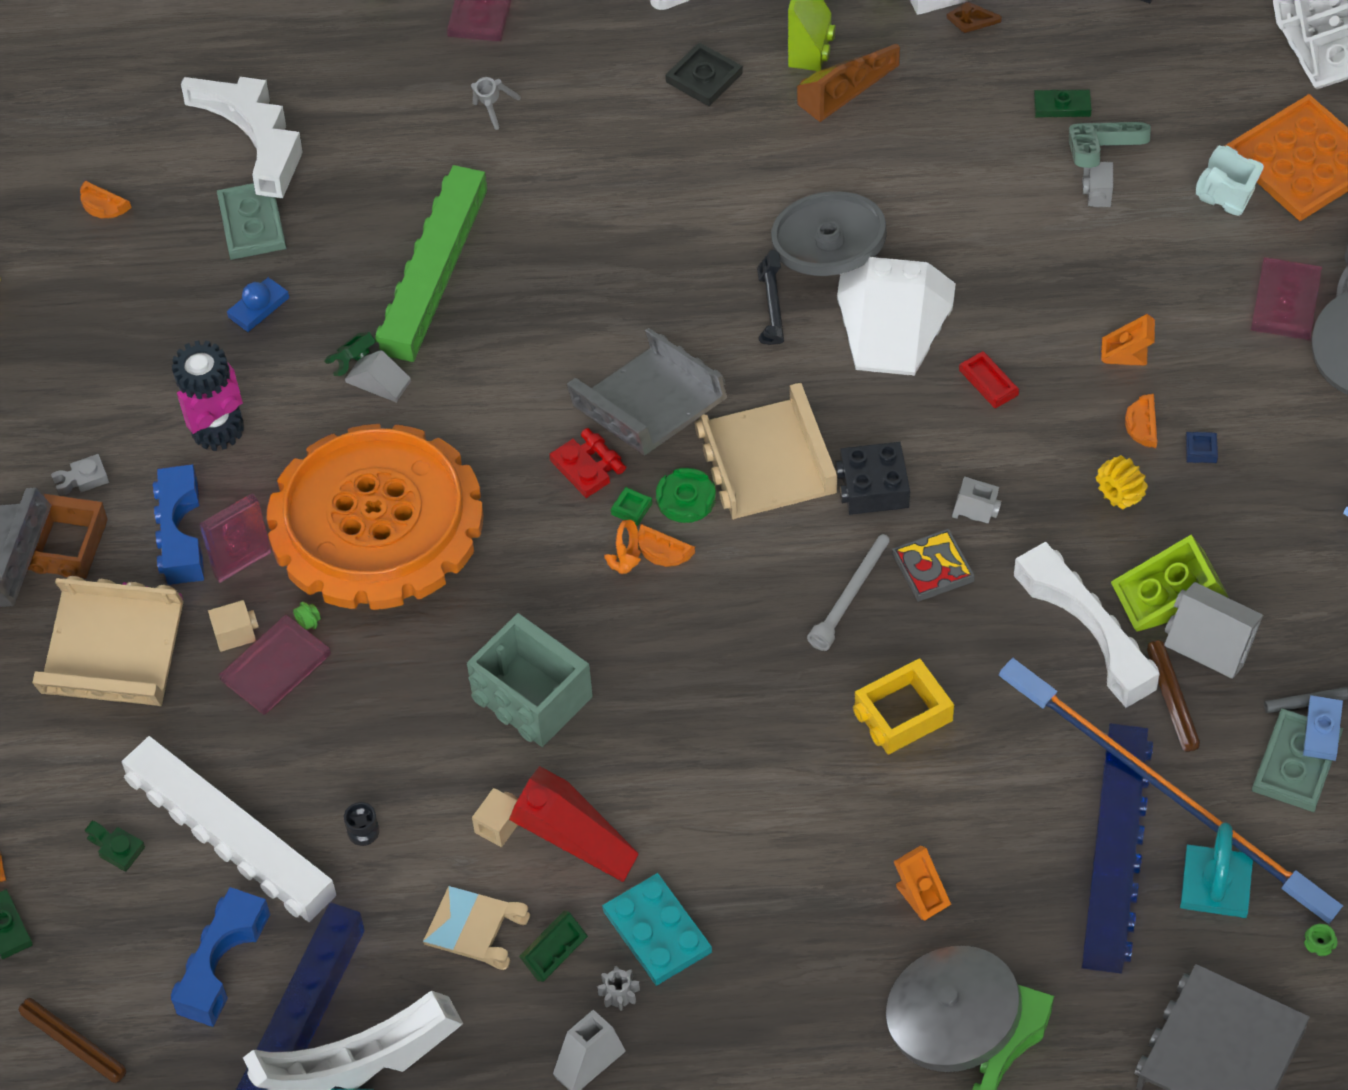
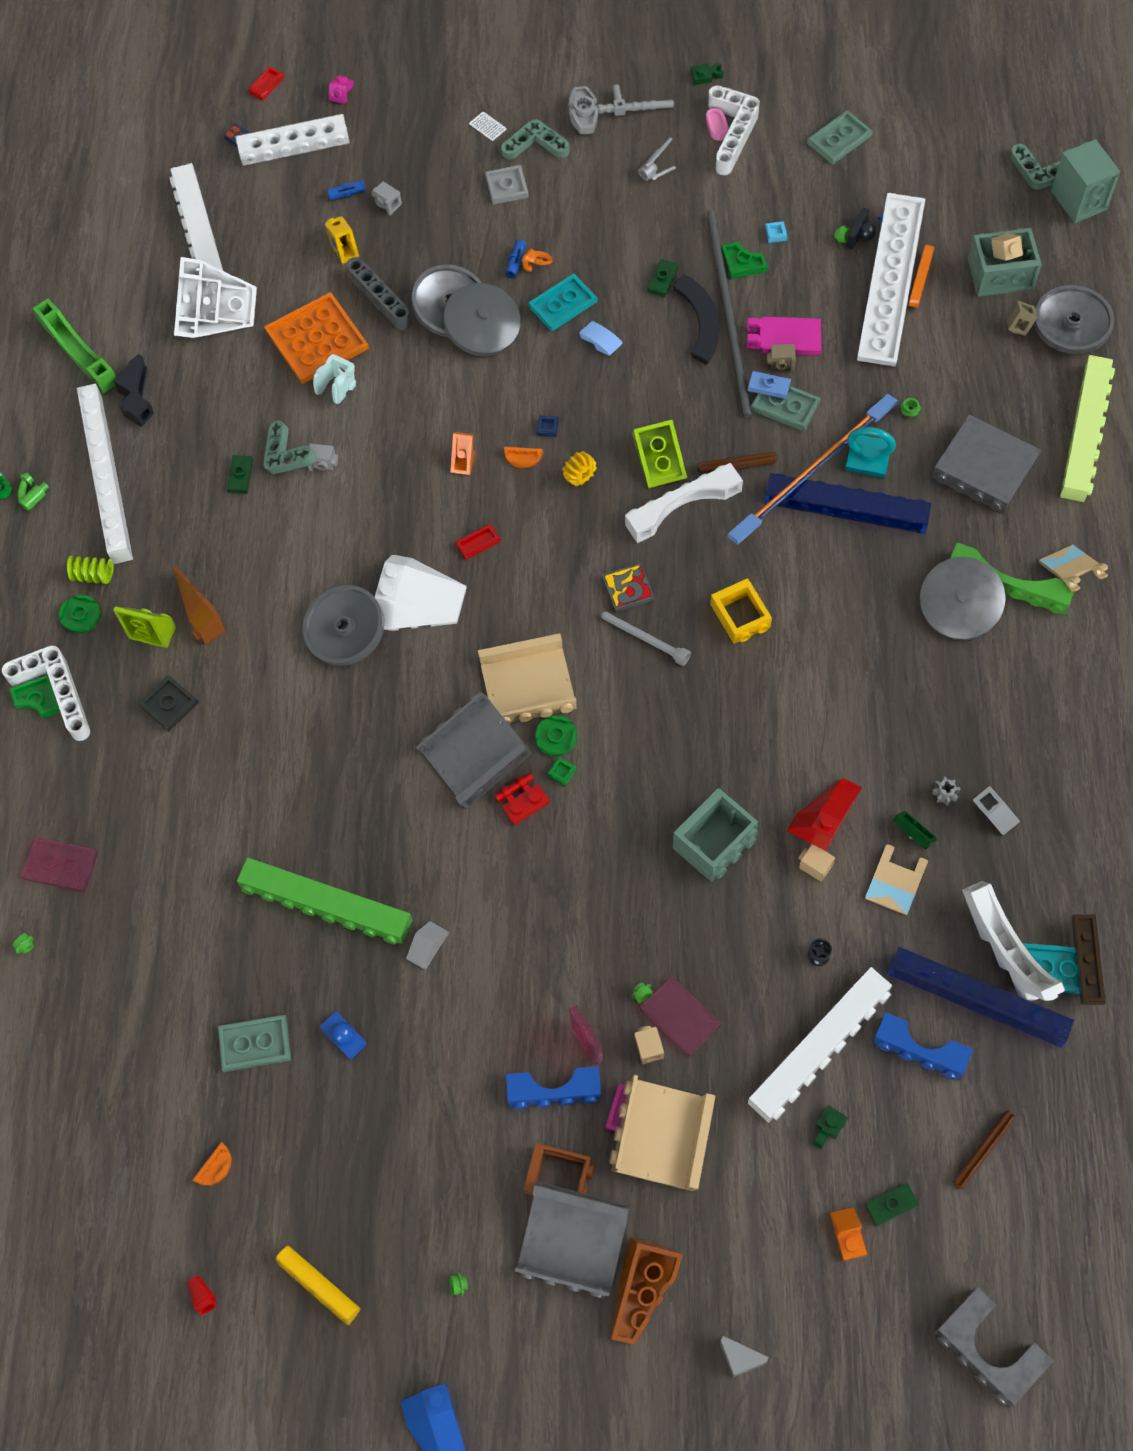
camera: 85 degrees left, 10 degrees up
(85, 474) = (493, 1166): light grey plate -> none
(208, 395) = (457, 1054): plate -> none
(263, 122) = (136, 1048): white arch -> none
(353, 349) = (400, 962): dark green plate -> none
(433, 498) = (554, 897): orange piece -> none
(488, 92) = (172, 850): light grey plant -> none
(627, 557) = (610, 773): orange piece -> none
(657, 929) = (898, 769): teal plate -> none
(663, 549) = (599, 753): orange tile -> none
(767, 272) = (365, 668): black hinge -> none
(873, 478) = (560, 612): black brick -> none
(921, 883) = (872, 612): orange slope -> none
(972, 17) = (147, 522): reddish brown piece -> none
(977, 500) = (583, 555): light grey brick -> none
(1212, 629) = (701, 429): light grey brick -> none
(1286, 298) = (432, 364): clear pink tile -> none

